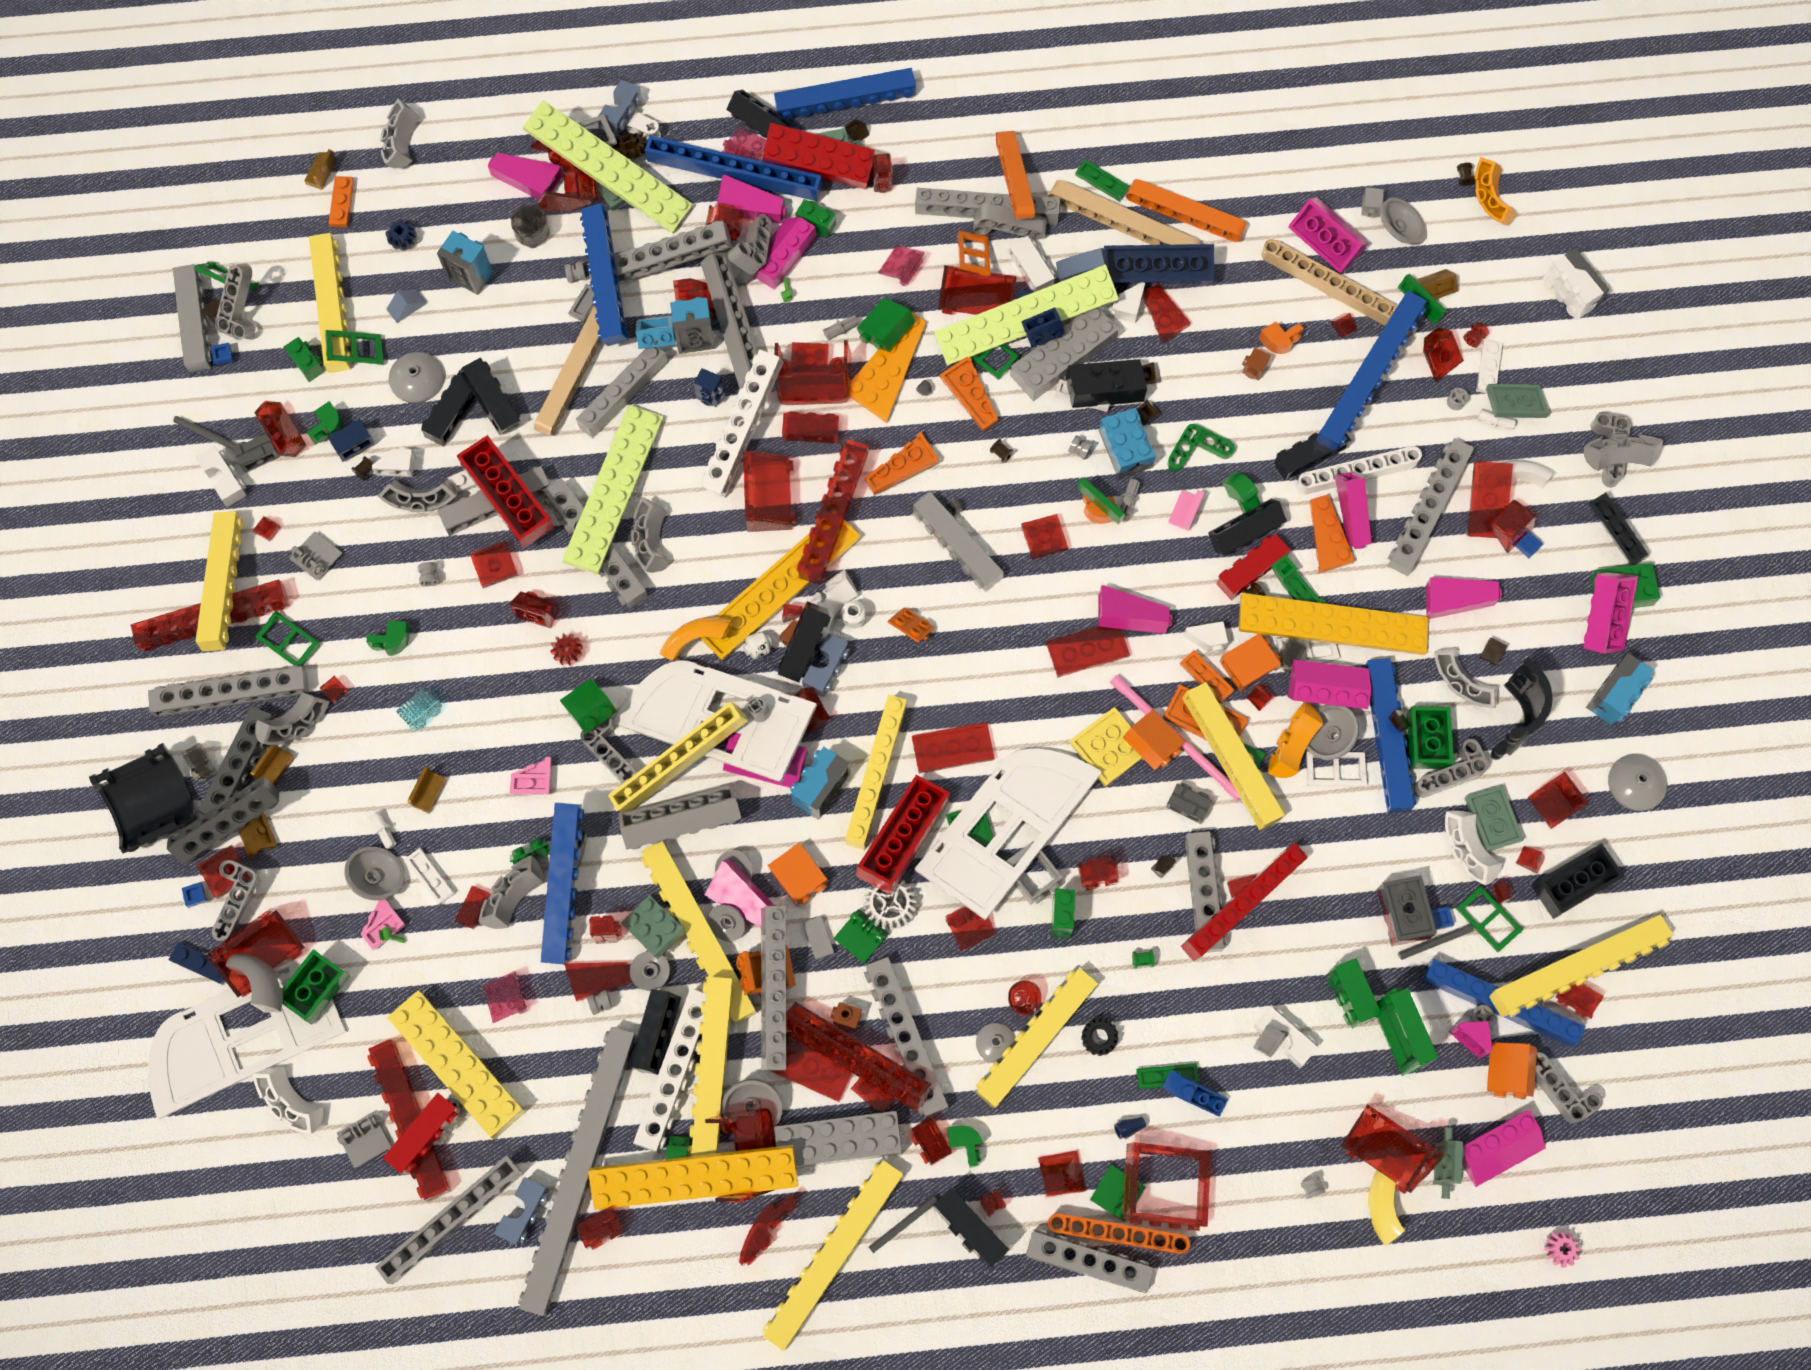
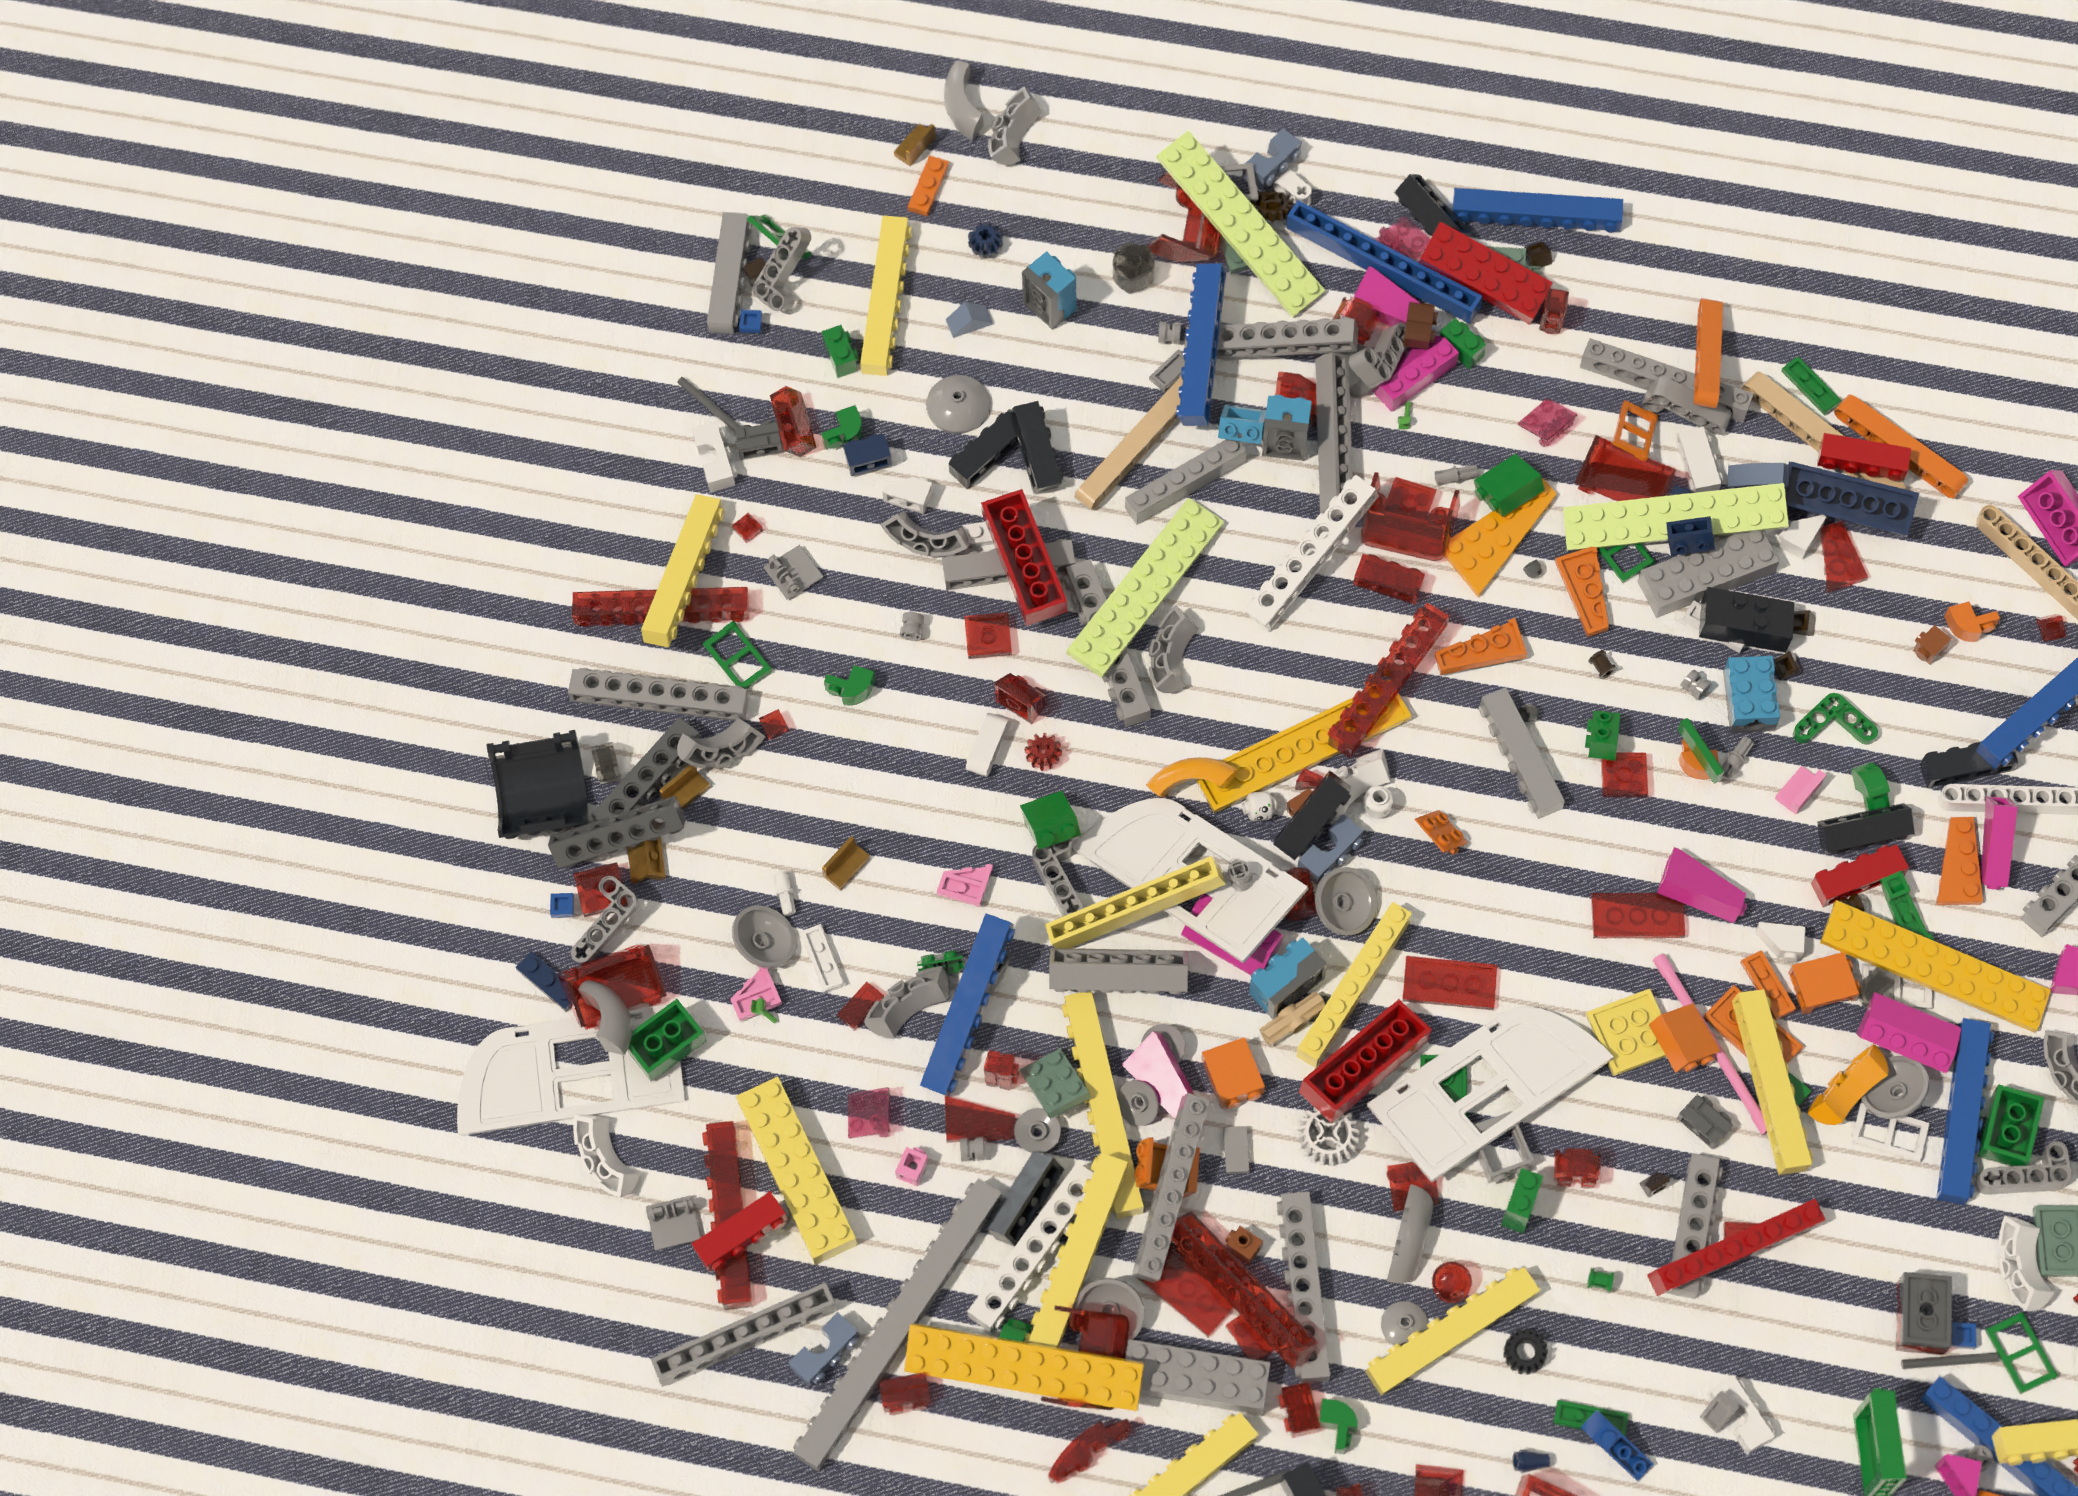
camera: 20 degrees right, 5 degrees down
(352, 133) = (963, 114): none -> light grey brick
(353, 336) = (922, 374): green window -> none
(363, 468) = (872, 489): dark brown bush -> none
(419, 709) = (862, 772): clear light blue brick -> none
(518, 656) = (987, 744): none -> white beam
(525, 174) = (1144, 208): dark pink slope -> none
(546, 1036) = (912, 1156): none -> bright pink brick
(709, 388) = (1285, 503): dark blue brick -> none
(767, 492) = (1319, 638): clear red windscreen -> none
(777, 213) = (1419, 325): none -> reddish brown brick
(834, 814) = (1292, 1018): none -> tan piece
(859, 704) = (1356, 900): none -> light grey dish
(860, 936) = (1284, 1161): green hinge -> none
(981, 969) = (1411, 1236): none -> light grey brick
(1019, 509) = (1604, 735): none -> green brick
(1161, 226) = (1864, 457): none -> red brick
(1260, 697) = (1823, 1025): clear red tile -> none
(1353, 993) = (1833, 1388): green brick -> none
(1399, 721) = (1979, 1096): dark brown slope -> none
(1502, 892) = (2045, 1326): clear red plate -> none

